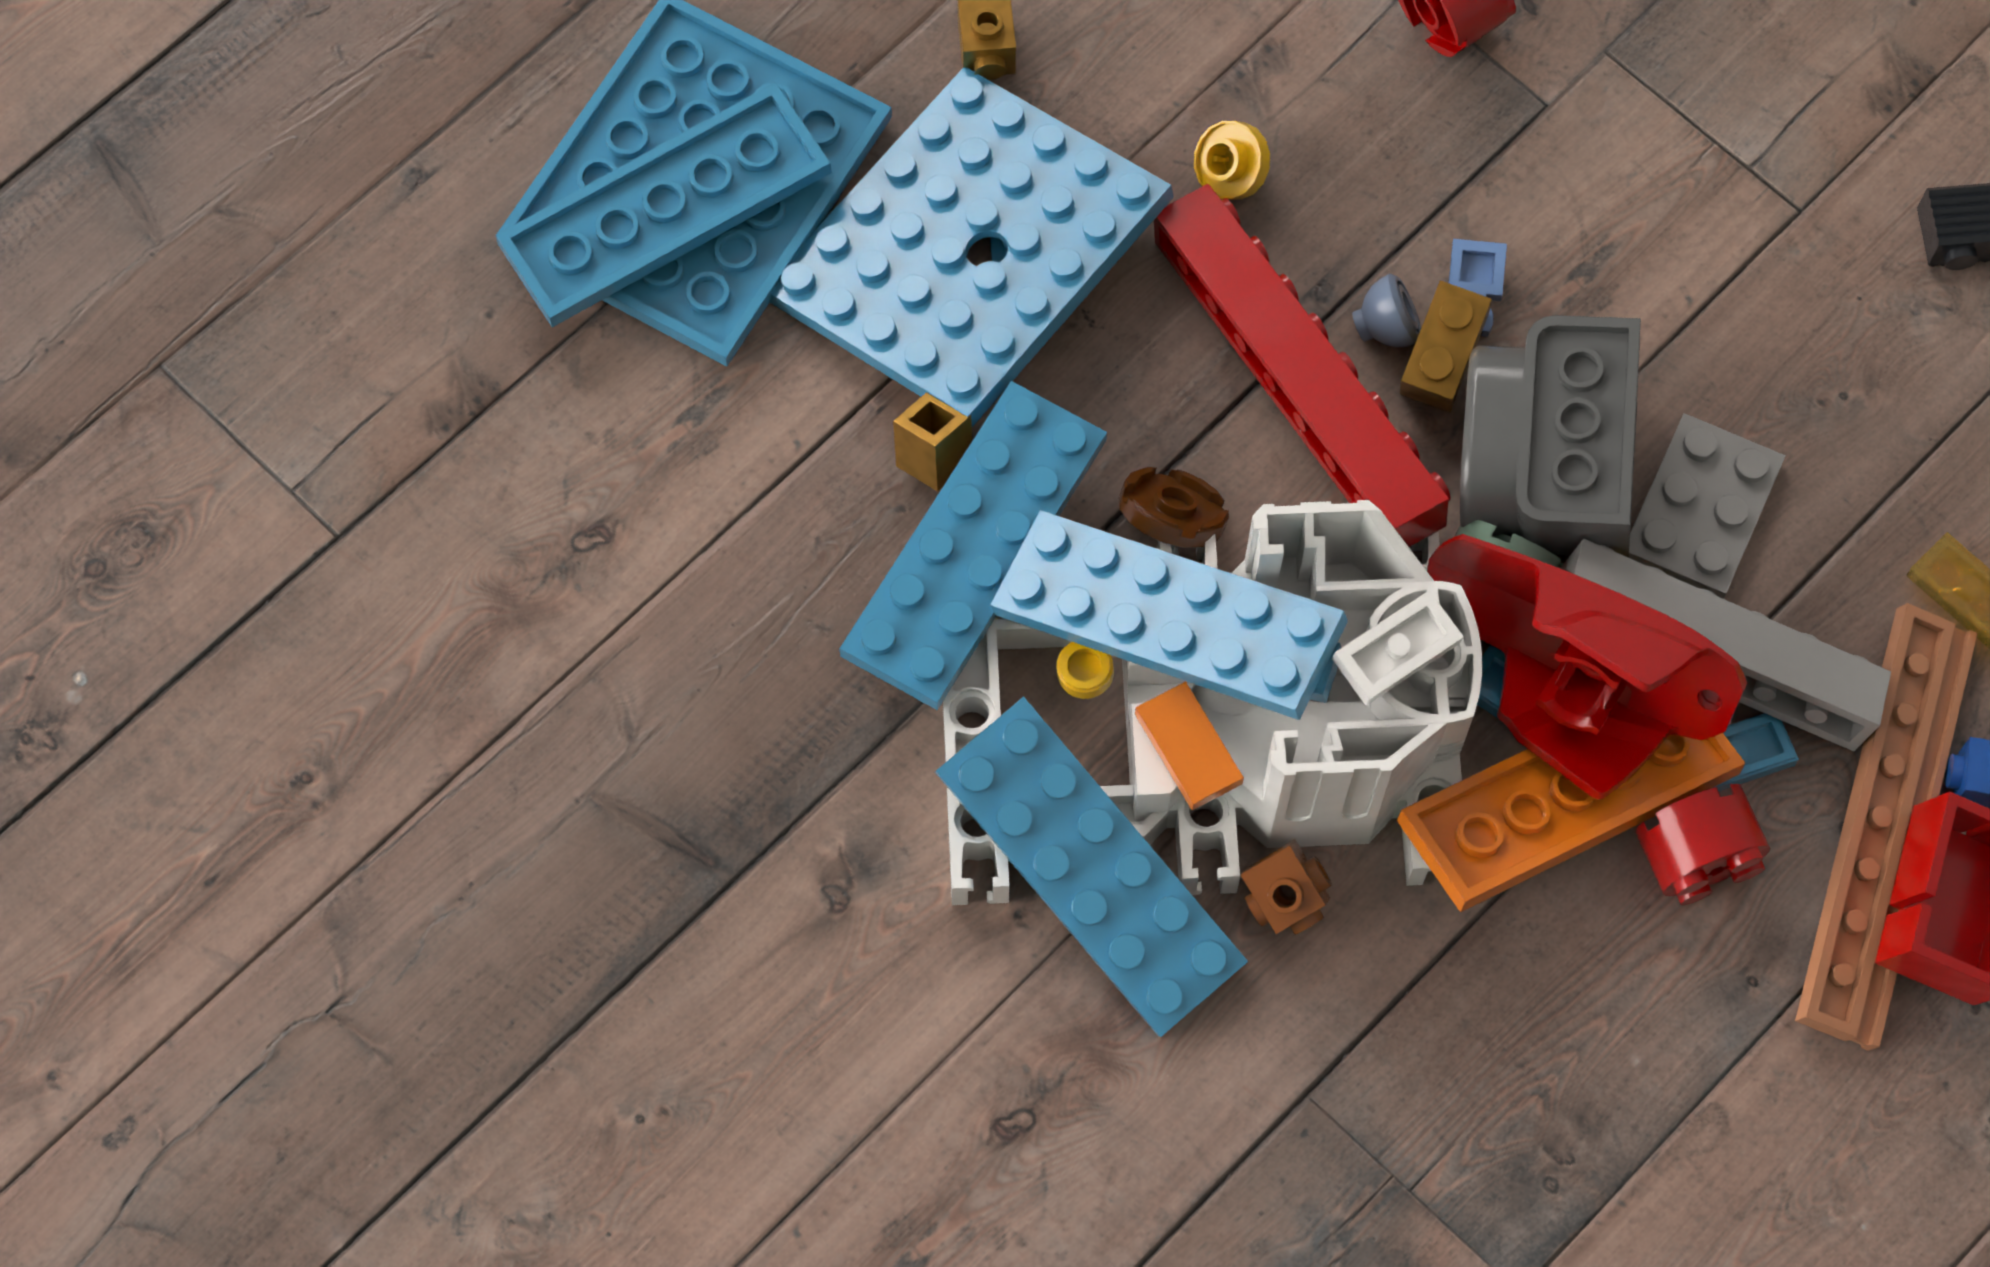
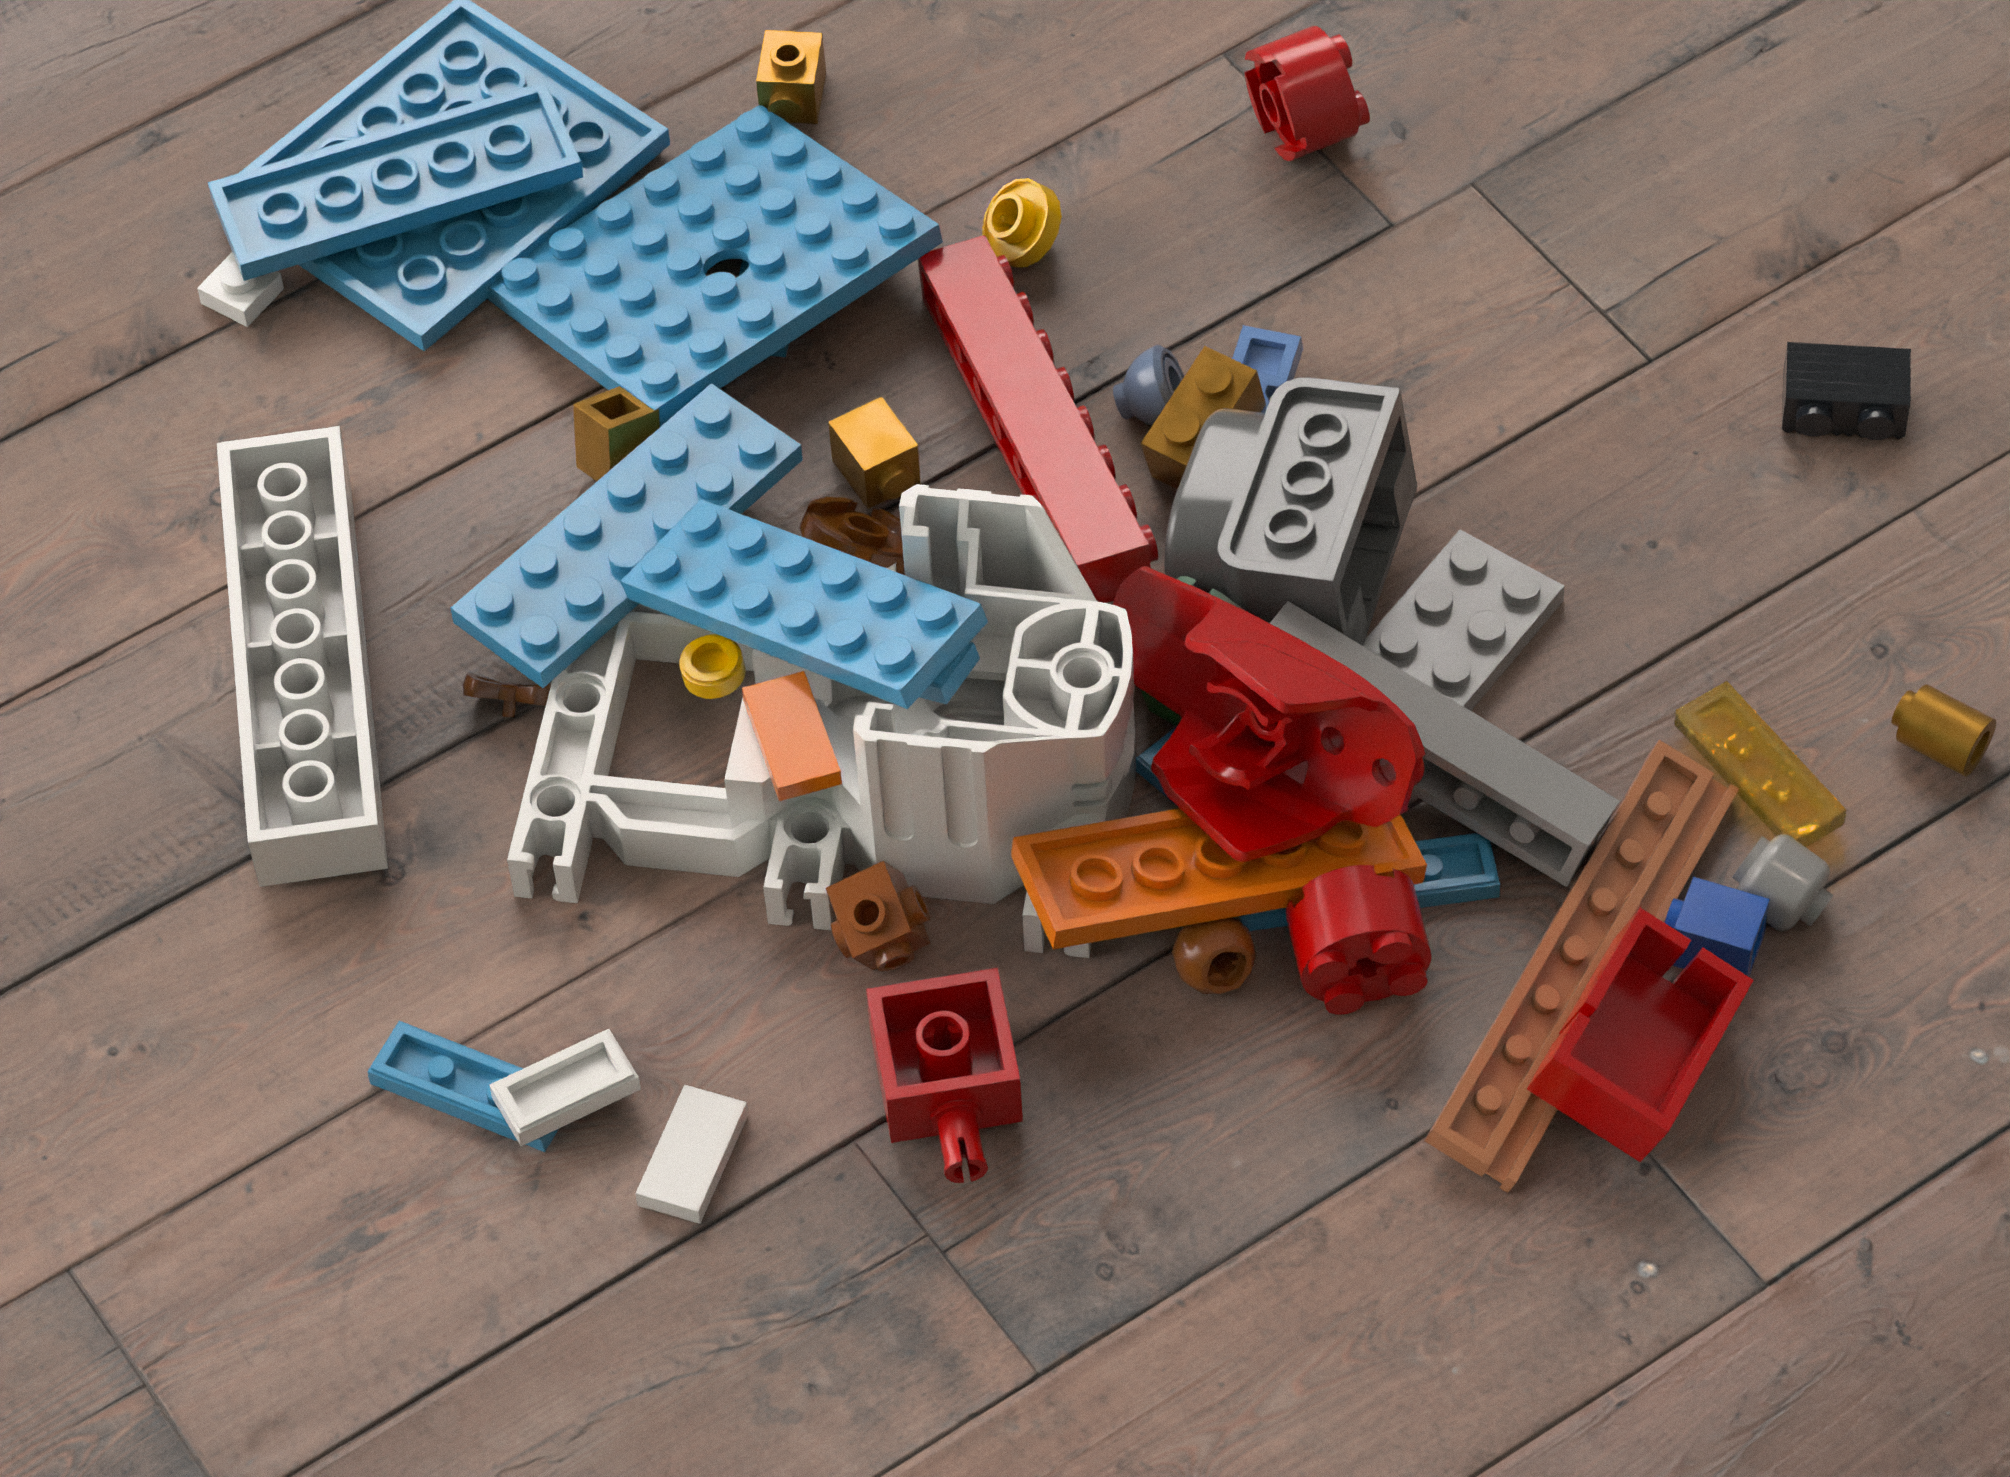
camera: 15 degrees right, 15 degrees down
(534, 334) = (235, 298): none -> white plate
(709, 707) = (300, 658): none -> white brick
(876, 707) = (485, 687): none -> reddish brown piece
(967, 1102) = (445, 1078): none -> dark azure tile
(1055, 1097) = (565, 1087): none -> white tile
(1091, 867) = (665, 861): dark azure plate -> none
(1161, 416) = (874, 452): none -> brick
(1176, 1137) = (692, 1154): none -> white tile
(1371, 1052) = (946, 1063): none -> red brick
(1397, 647) = (1031, 649): white plate -> none
(1581, 878) = (1214, 955): none -> dark orange piece

